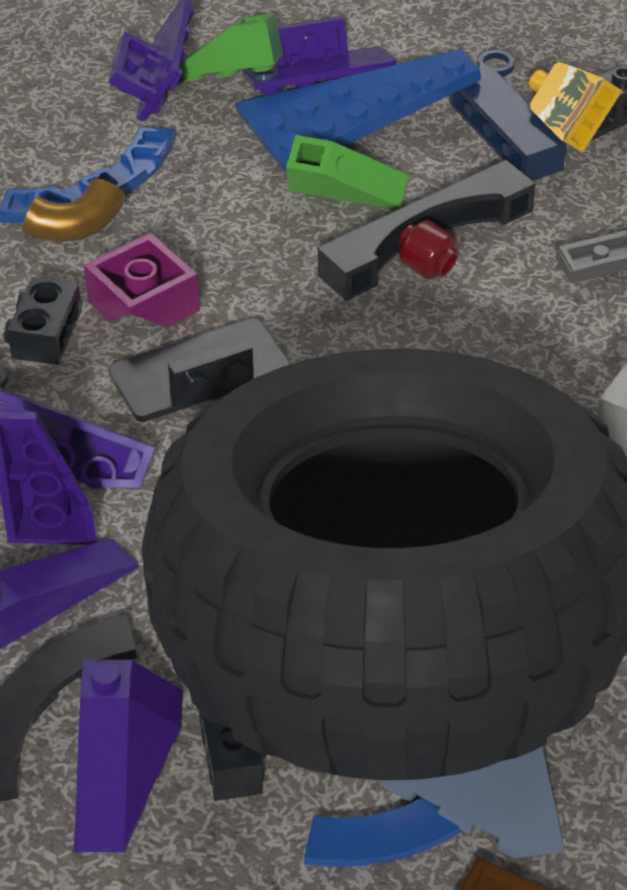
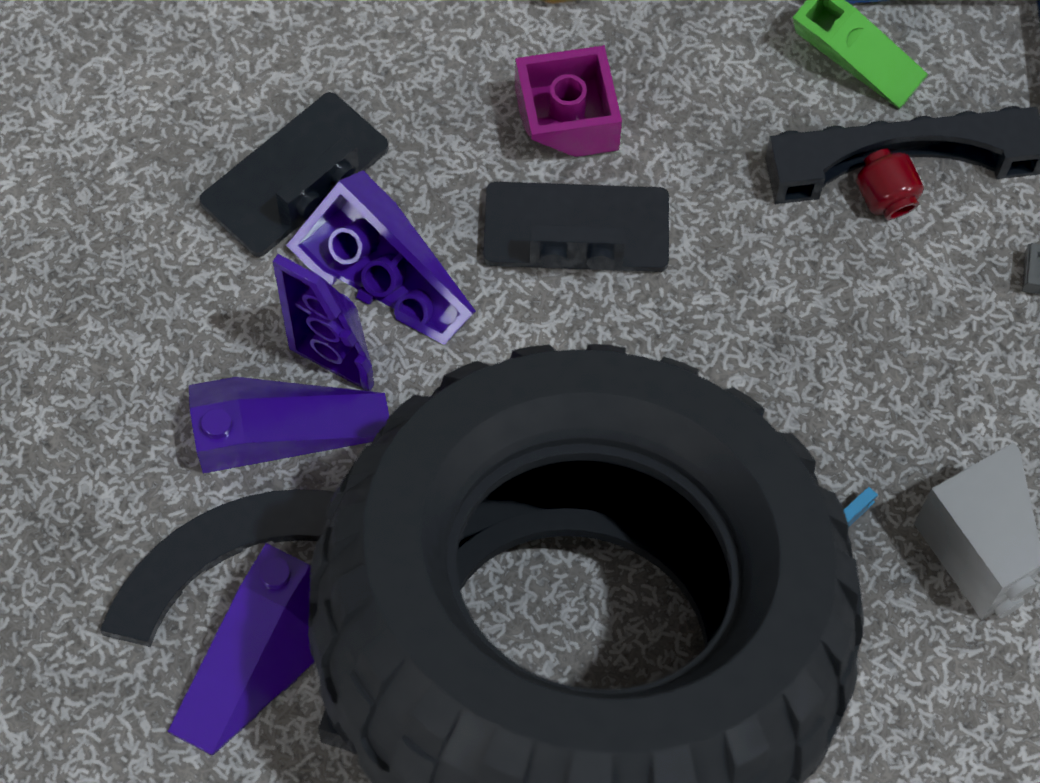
camera: 25 degrees right, 20 degrees up
(43, 320) = (462, 103): black brick -> none

